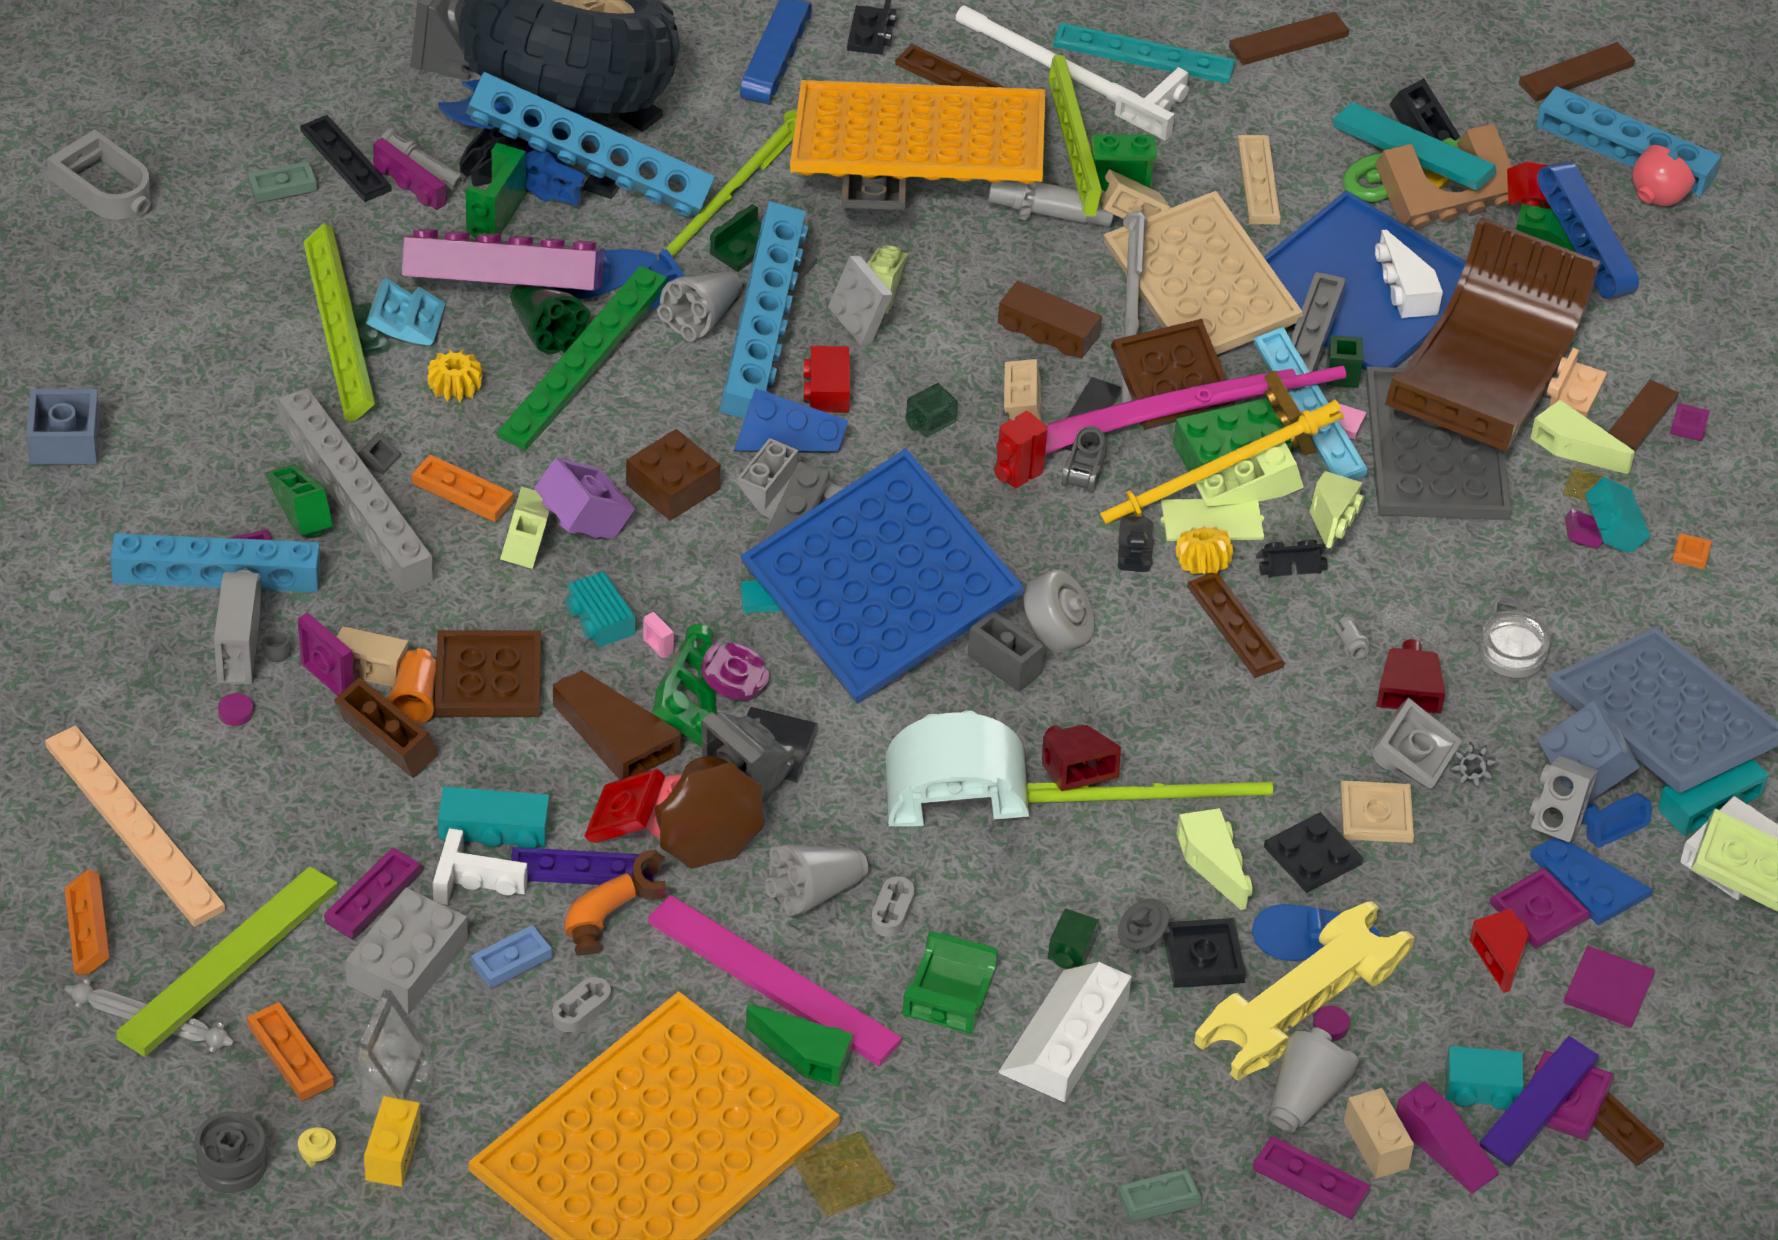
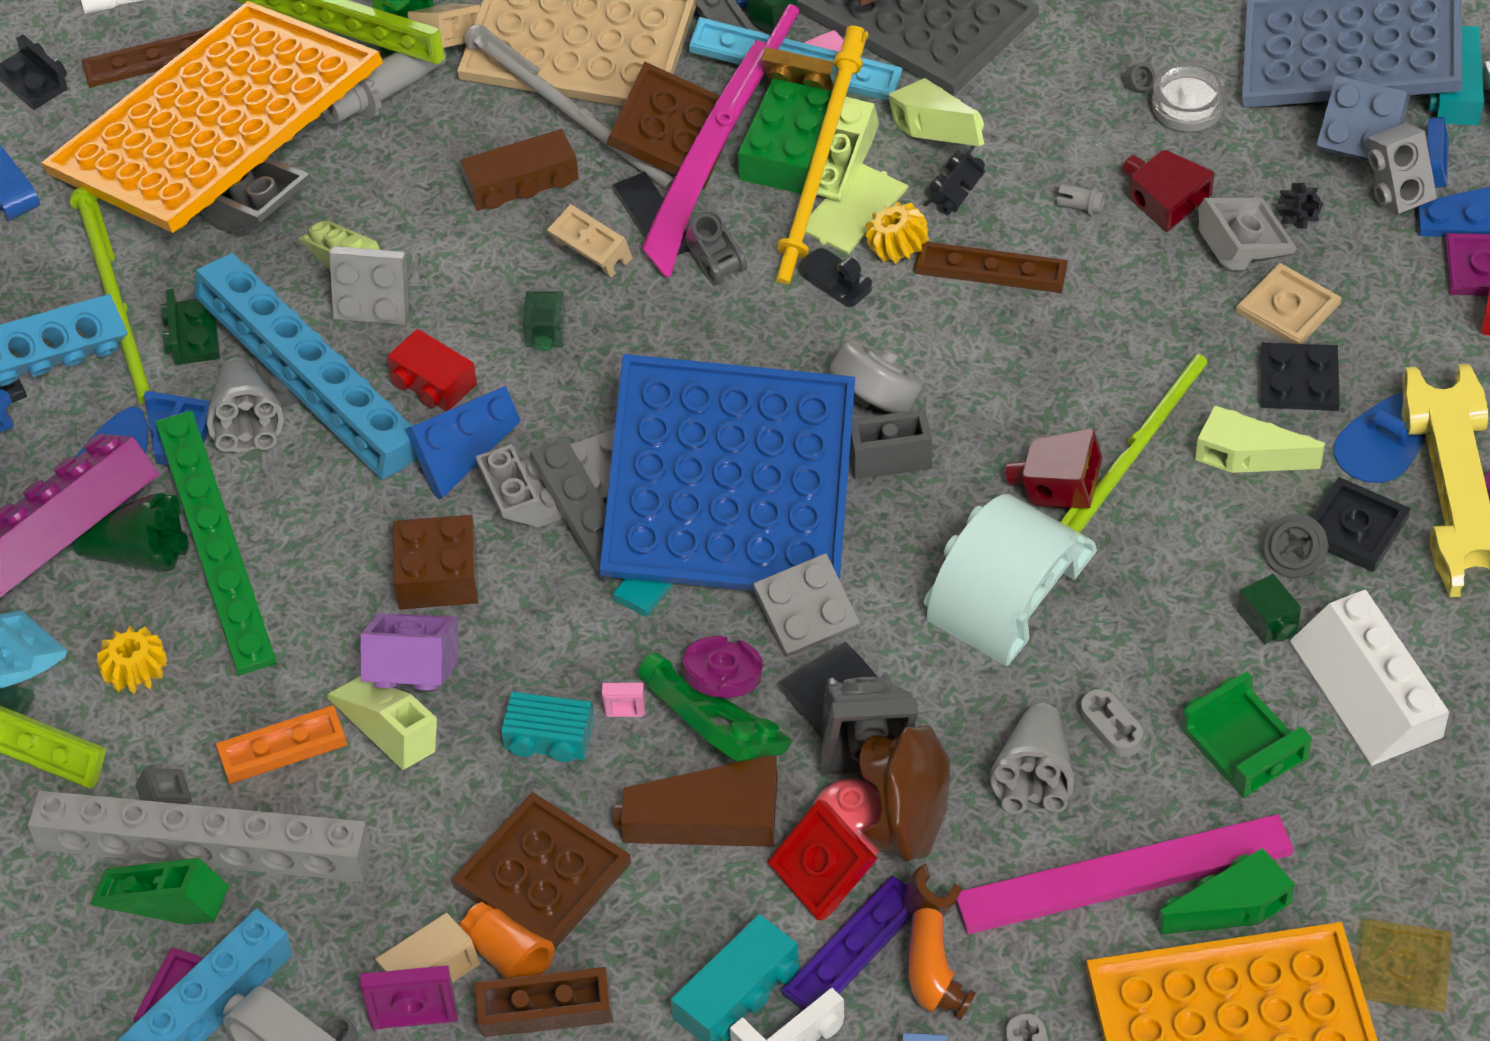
camera: 45 degrees left, 5 degrees up
(826, 685) = (806, 605): none -> light grey plate
(1021, 450) = (666, 282): red brick -> none

